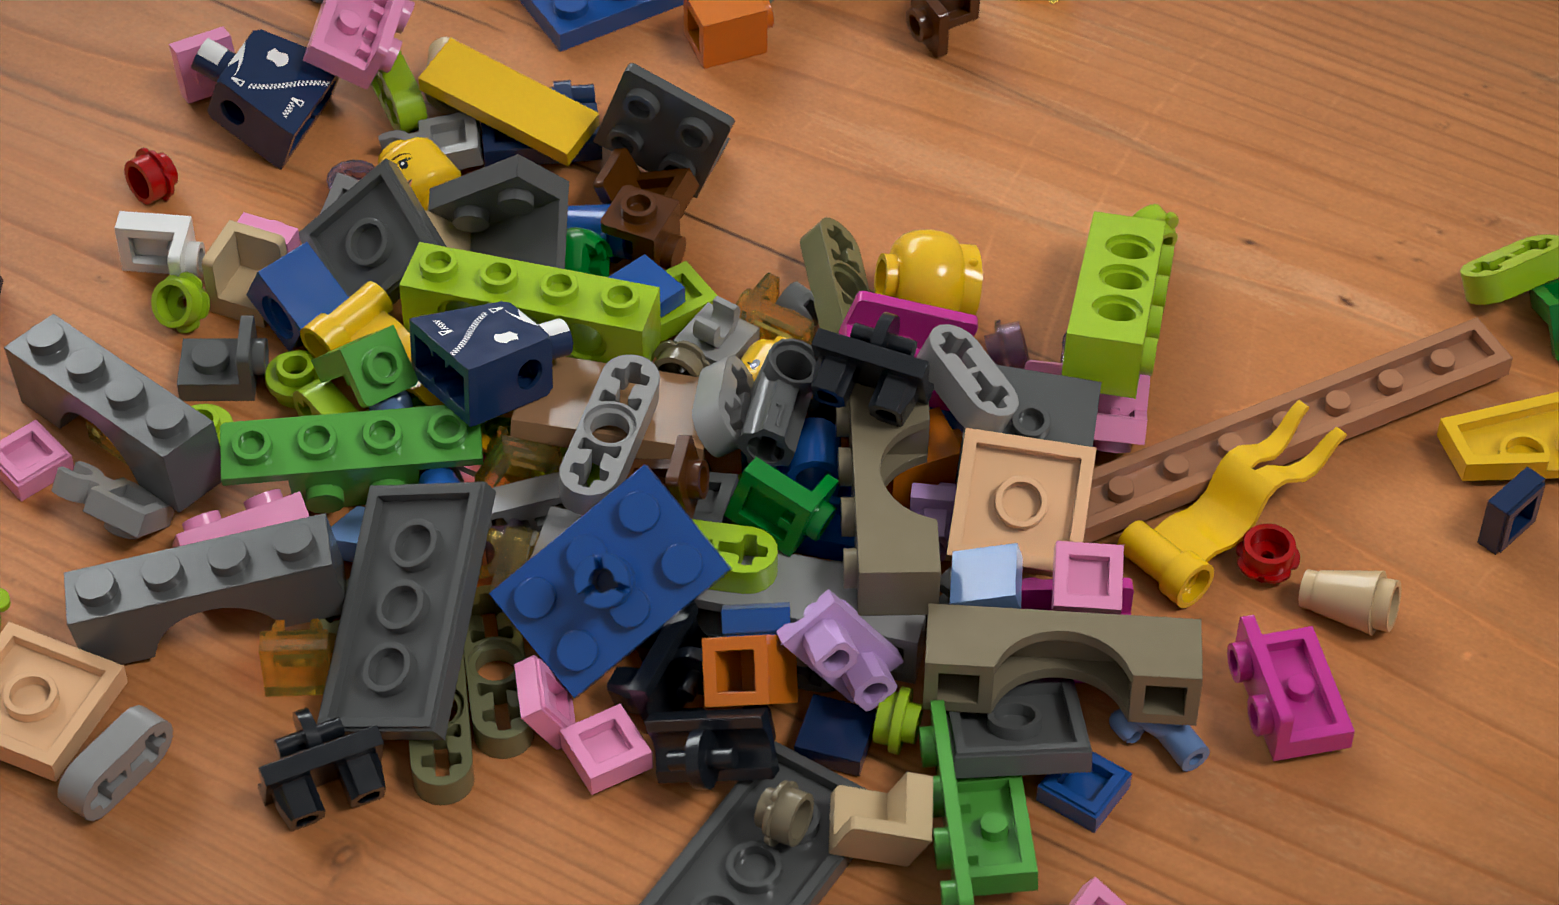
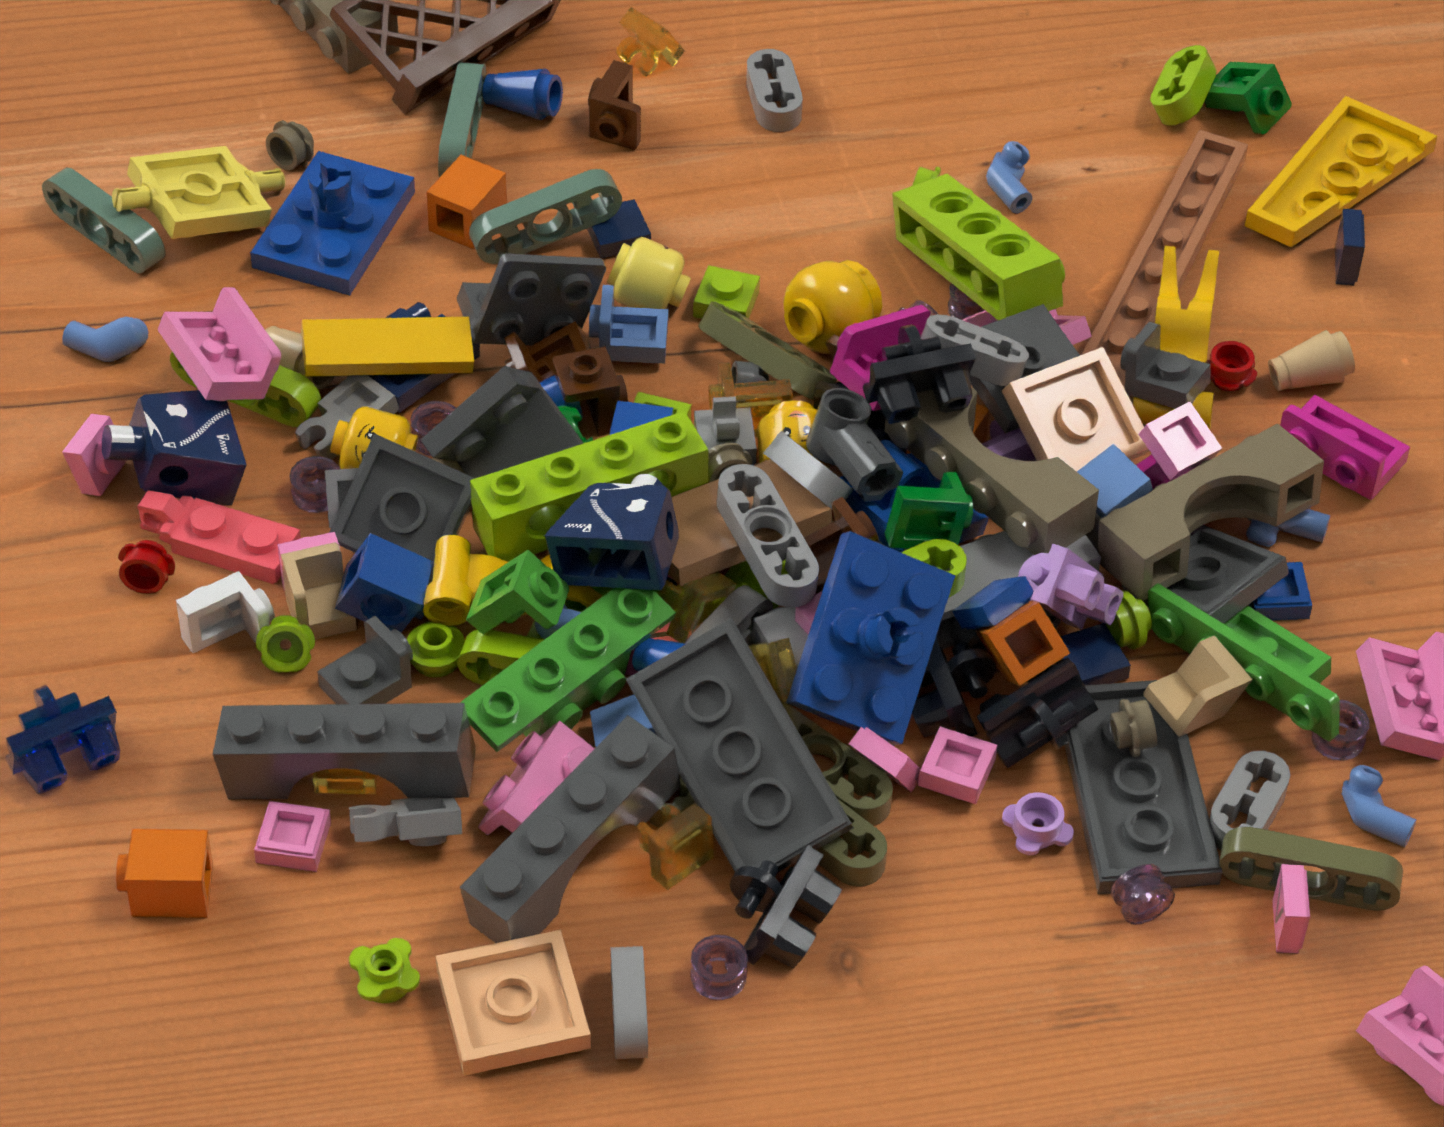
camera: 40 degrees left, 0 degrees up
(227, 802) = (719, 949): none -> bush
(234, 177) = (217, 534): none -> coral hinge
(623, 830) = (1040, 810): none -> lavender plate
(739, 205) = (629, 331): none -> medium blue bracket
(806, 168) = (648, 275): none -> light yellow head
(810, 67) = (566, 222): none -> sand green beam
(837, 116) = (622, 228): none -> dark blue tile
(872, 223) = (728, 288): none -> lime plate
(1122, 73) = (766, 91): none -> light grey beam
(1168, 513) = (1161, 375): none -> dark grey bracket
(1248, 258) = (1005, 176): none -> medium blue arm

